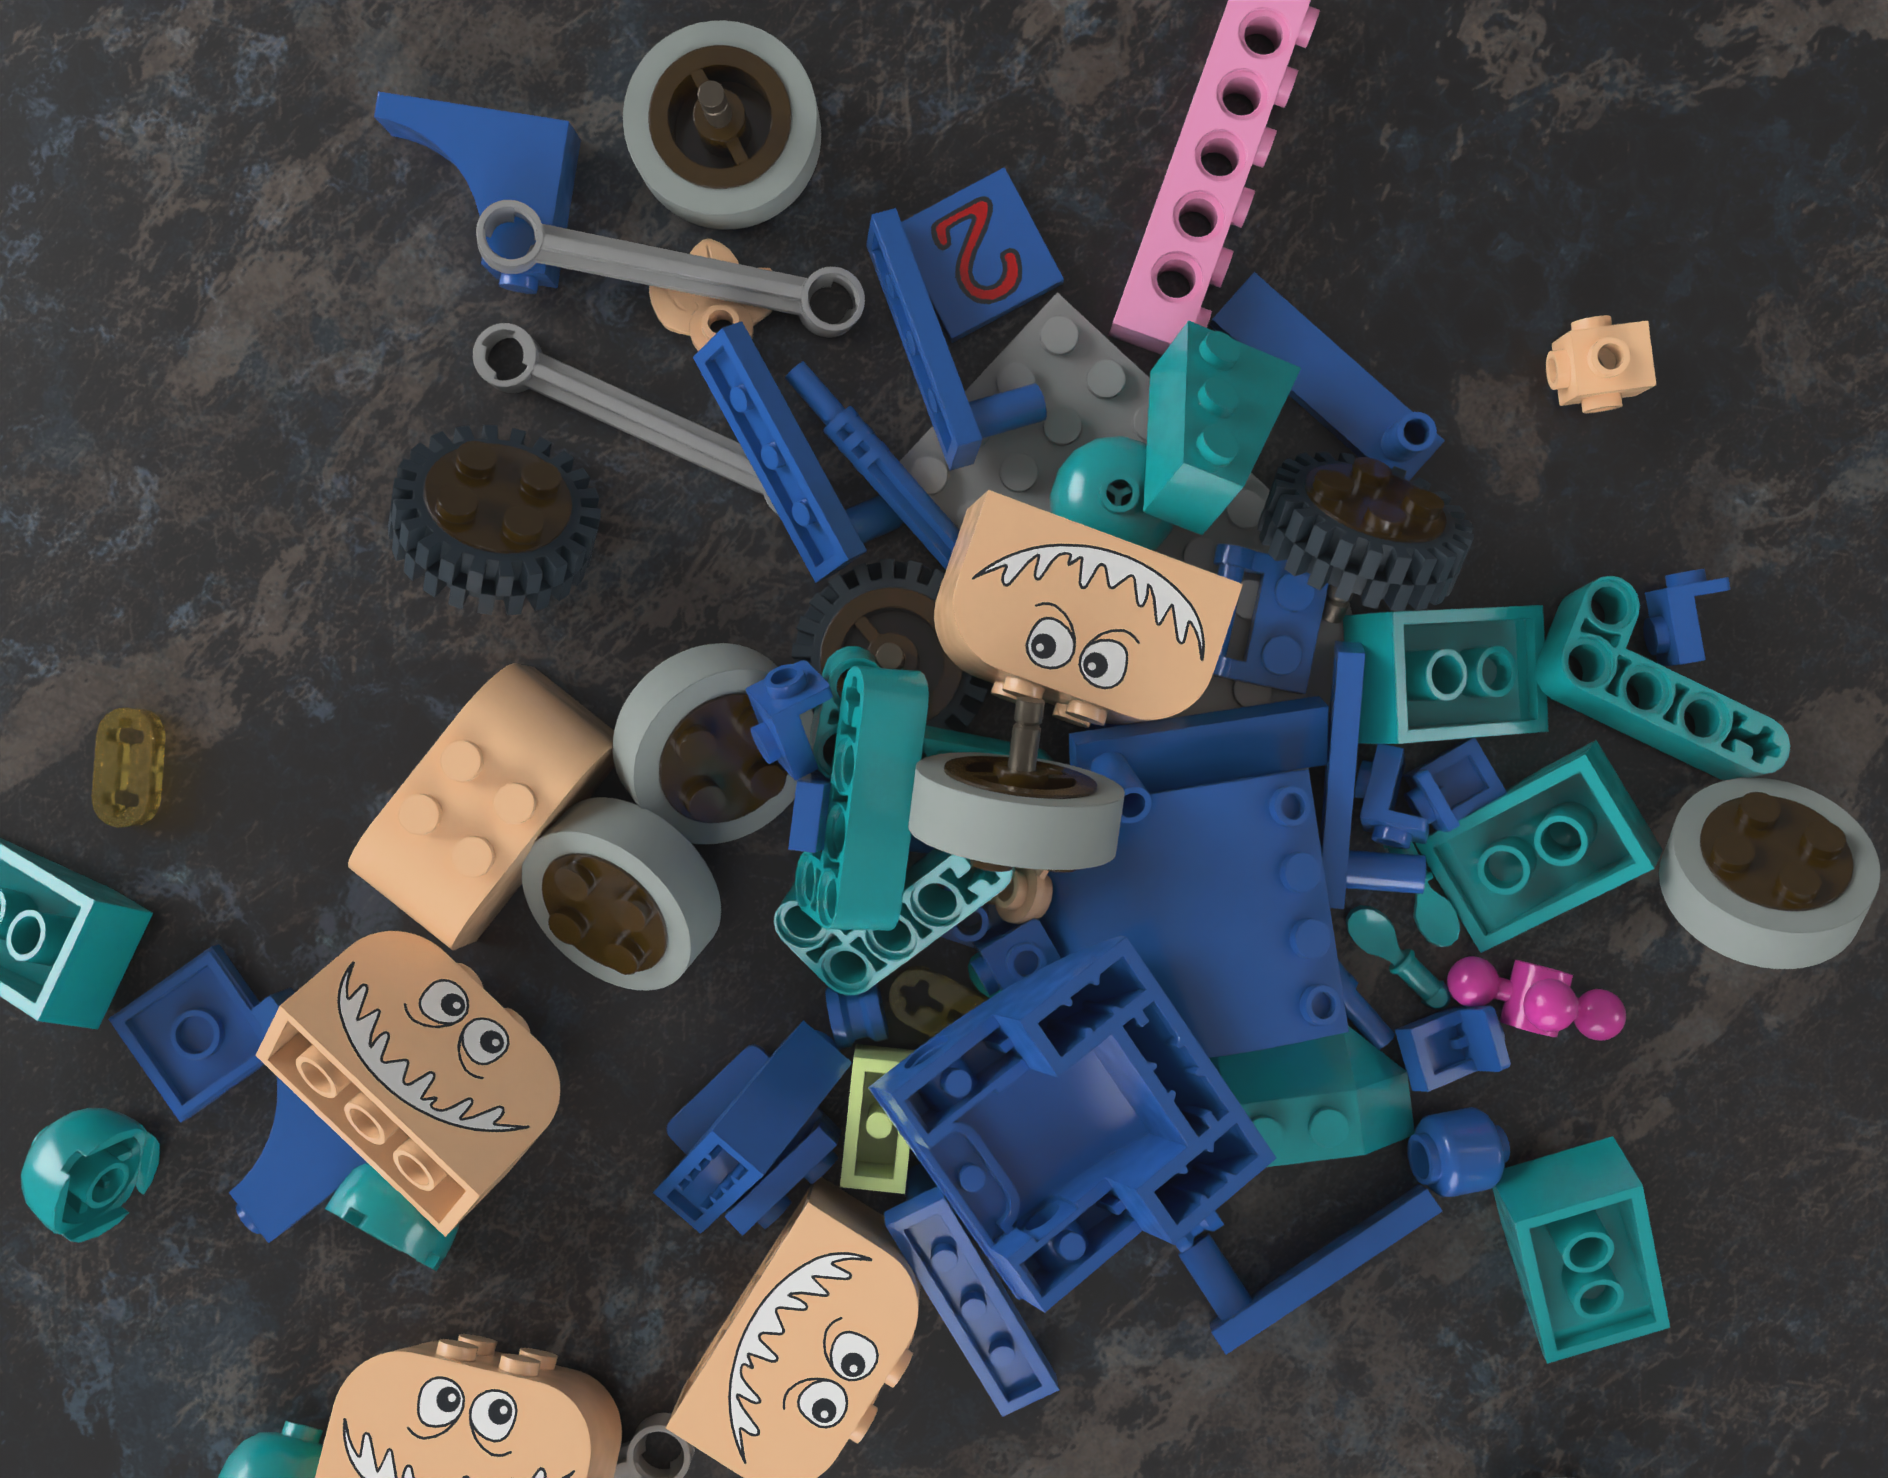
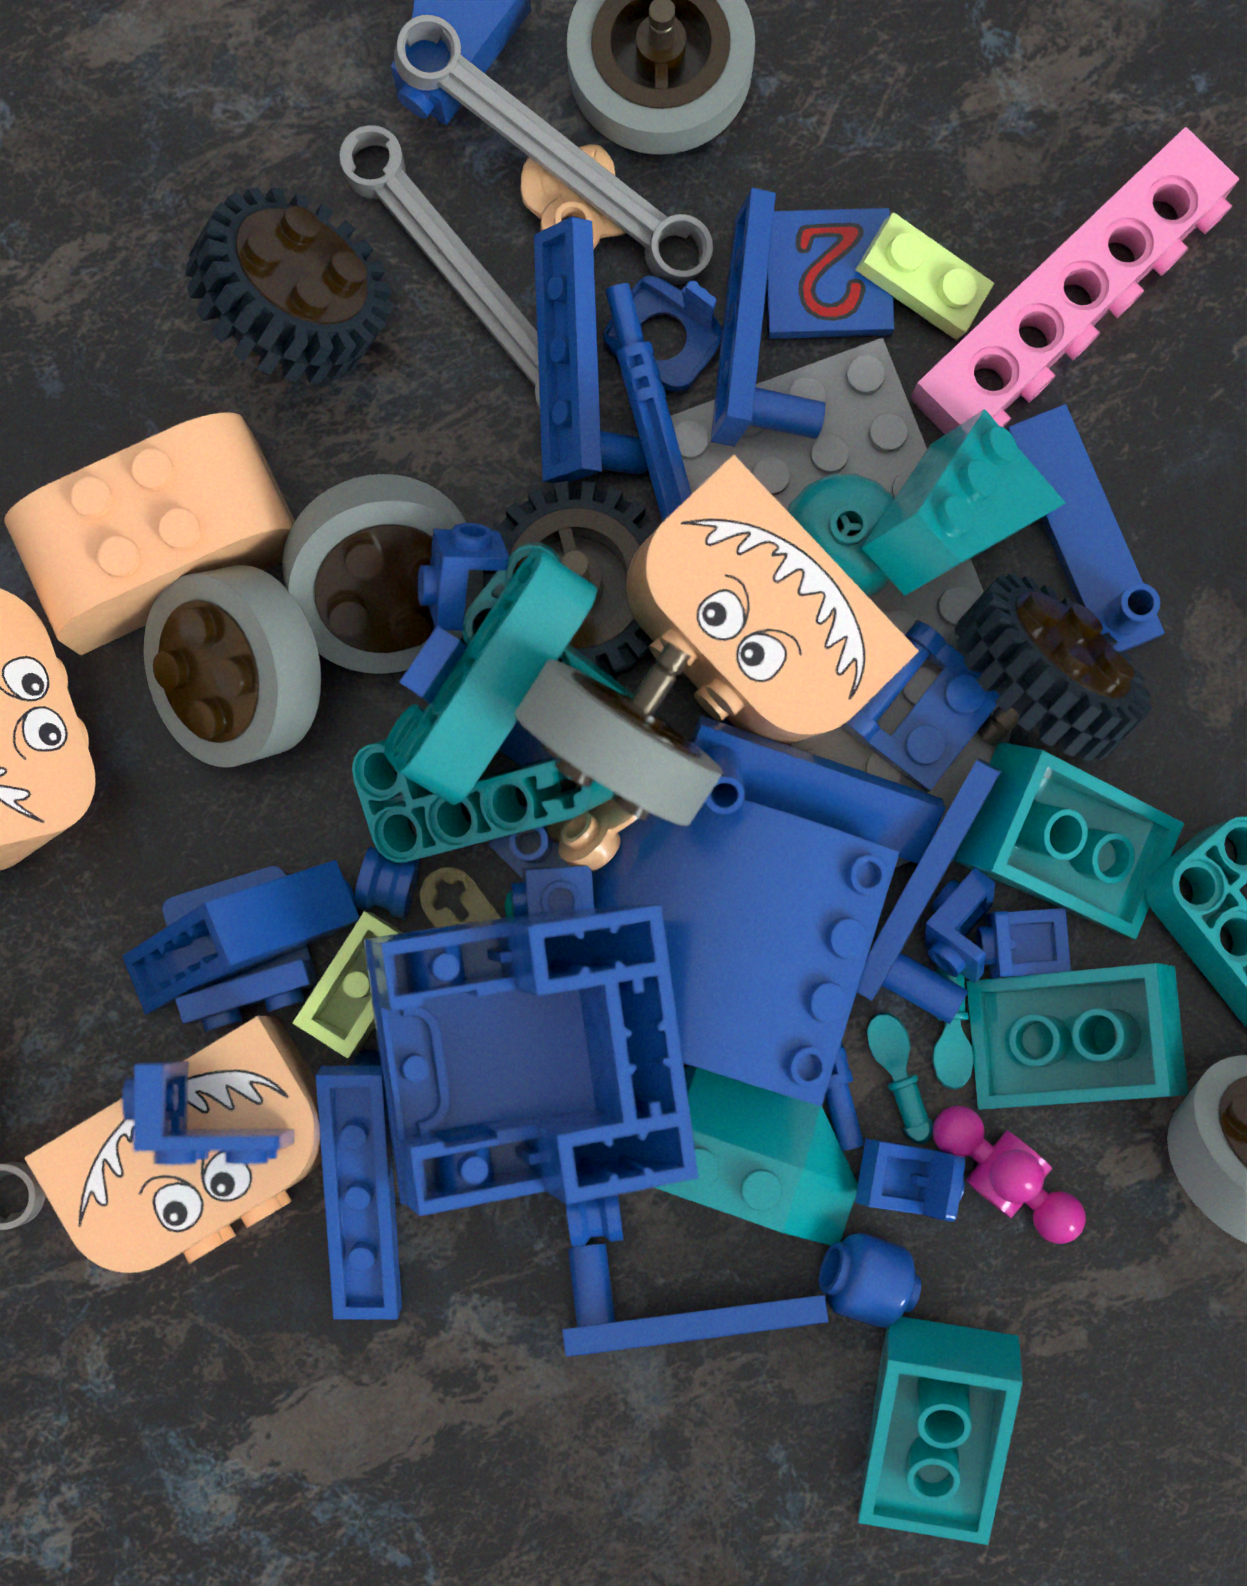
camera: 30 degrees right, 5 degrees down
(798, 1360) = (159, 1108): none -> blue bracket
(892, 369) = (694, 310): none -> blue piece
(1068, 216) = (924, 276): none -> yellowish green plate

